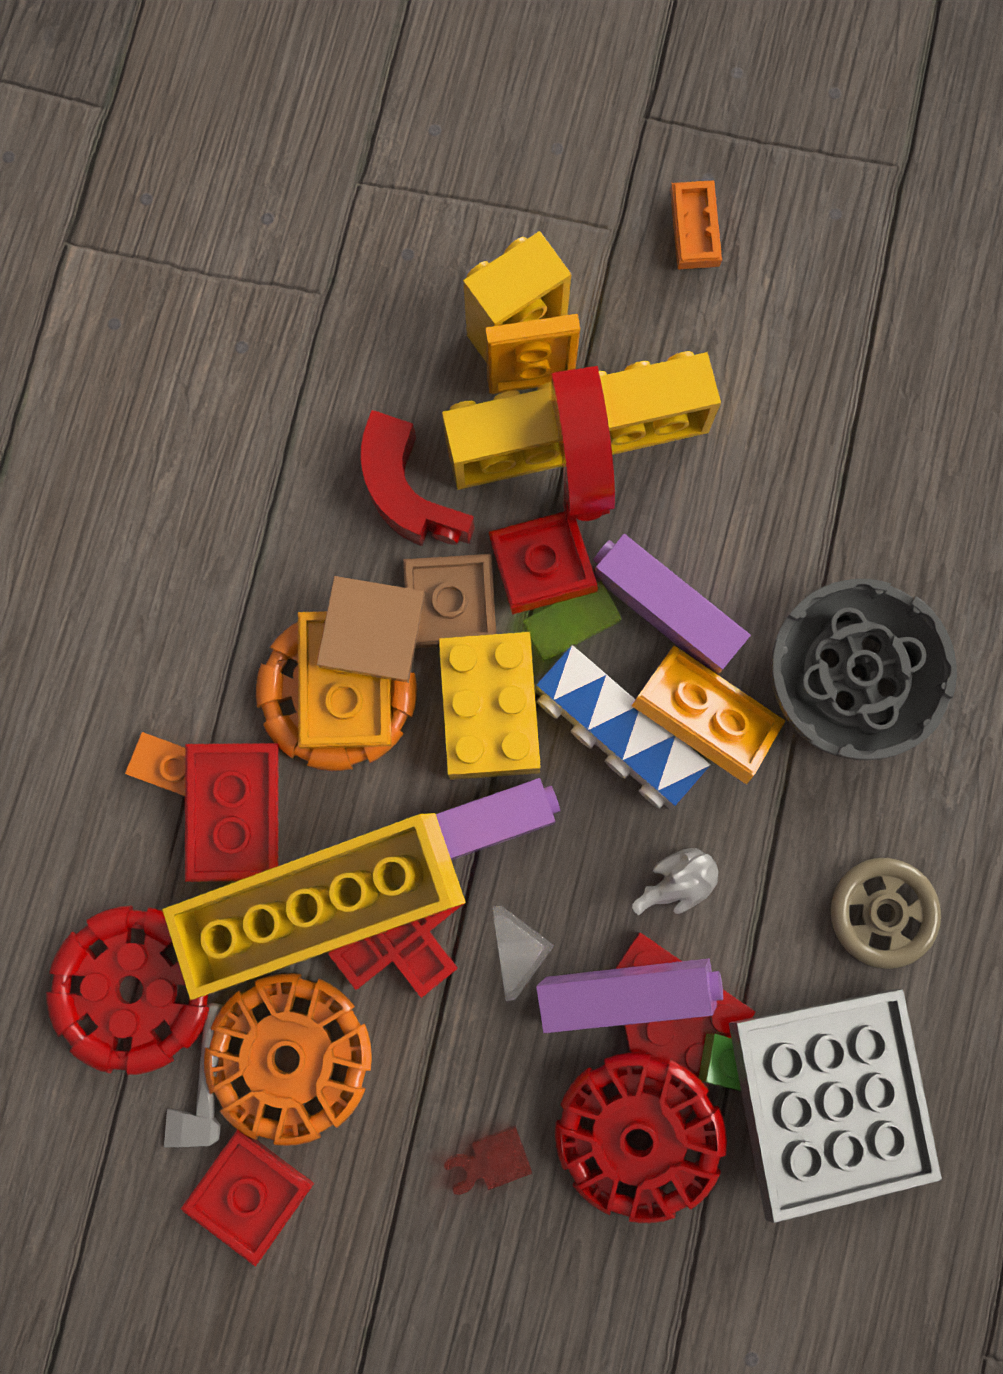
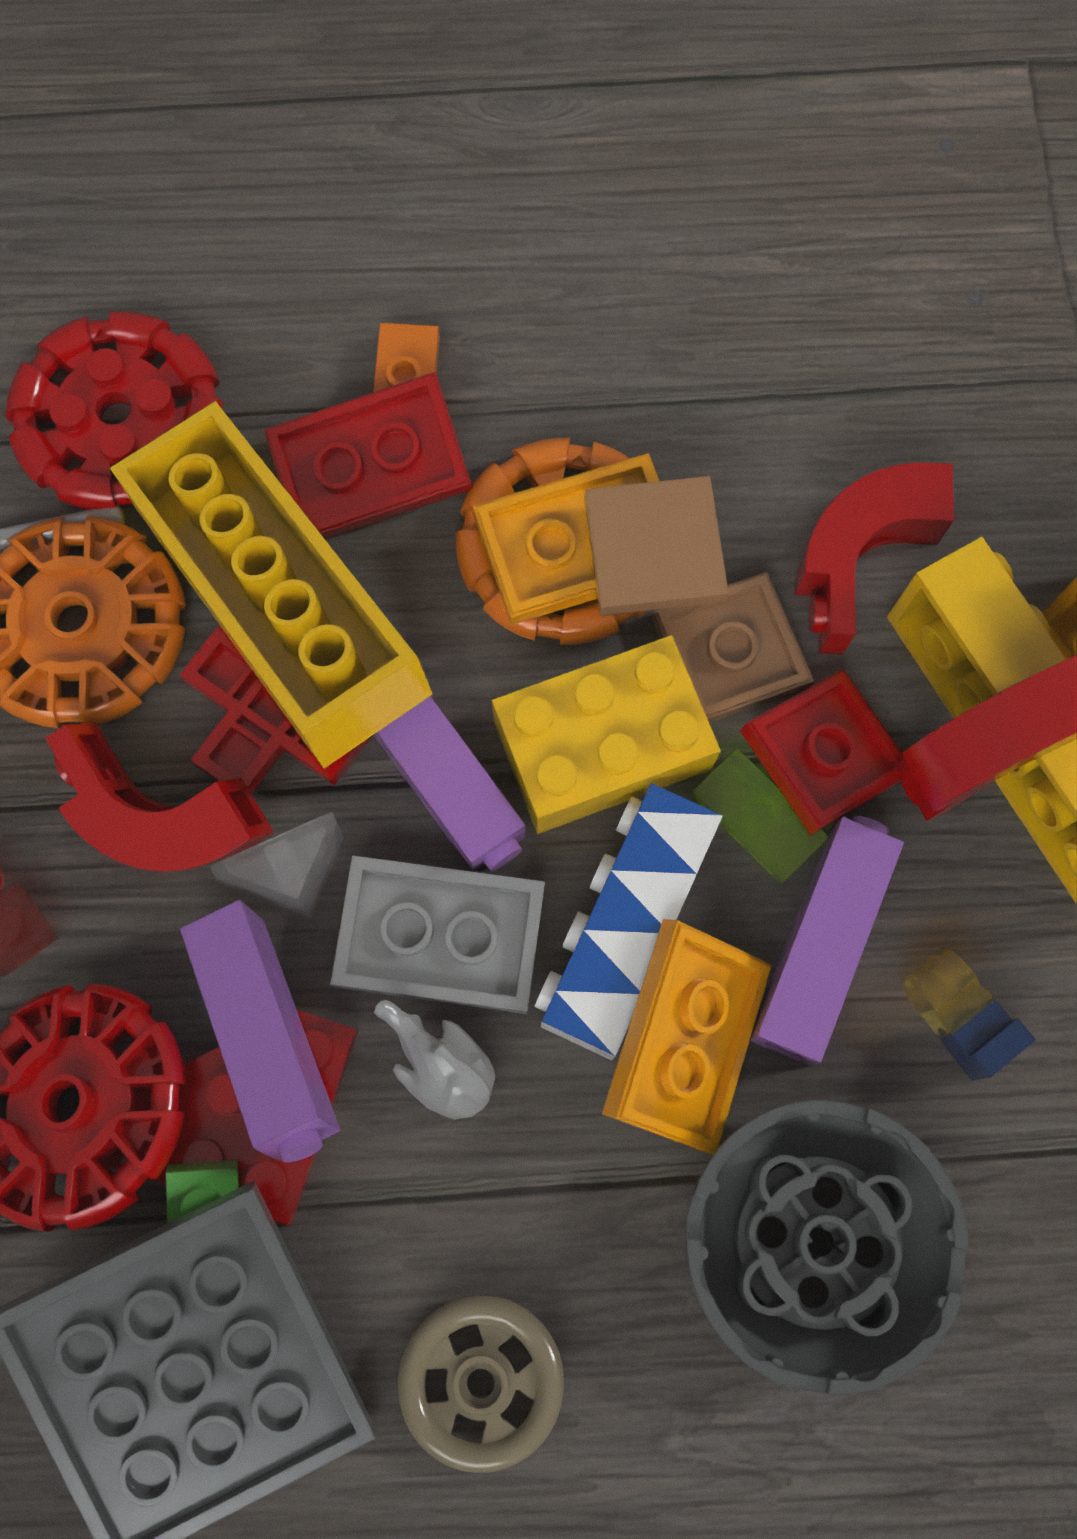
camera: 70 degrees right, 5 degrees down
(463, 1042) = (140, 831): none -> red arch
(592, 858) = (438, 934): none -> light grey plate
(743, 533) = (965, 1015): none -> leg

